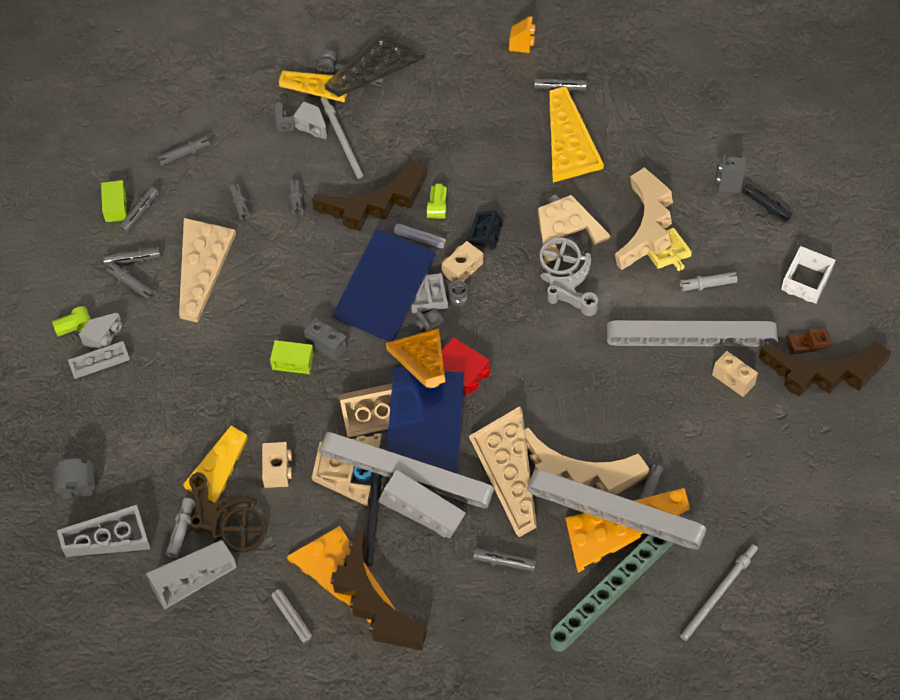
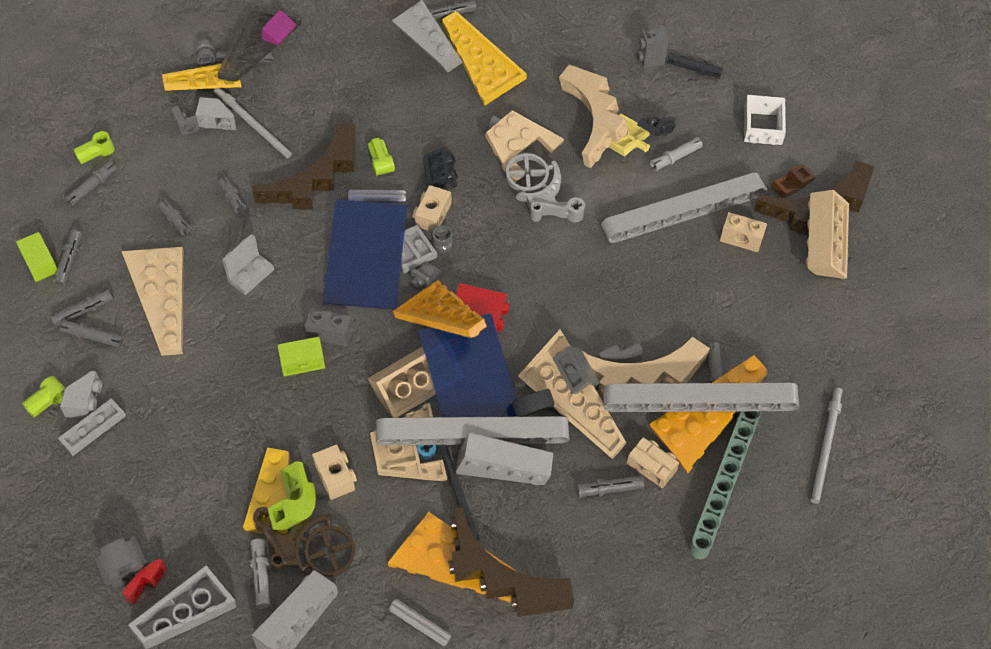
camera: 25 degrees left, 0 degrees up
(92, 498) = (148, 576): none -> red slope
(204, 119) = (99, 145): none -> lime piece
(237, 479) = (299, 501): none -> lime arch
(279, 263) = (245, 266): none -> light grey bracket
(397, 57) = (277, 28): none -> magenta slope
(468, 463) = (533, 403): none -> black tyre
(518, 446) = (575, 369): none -> dark grey panel
(528, 98) = (425, 32): none -> light grey wedge
(552, 552) = (653, 462): none -> tan brick
(575, 450) = (629, 354): none -> dark grey slope
(700, 249) = (658, 126): none -> black bracket
(812, 402) = (828, 234): none -> tan slope

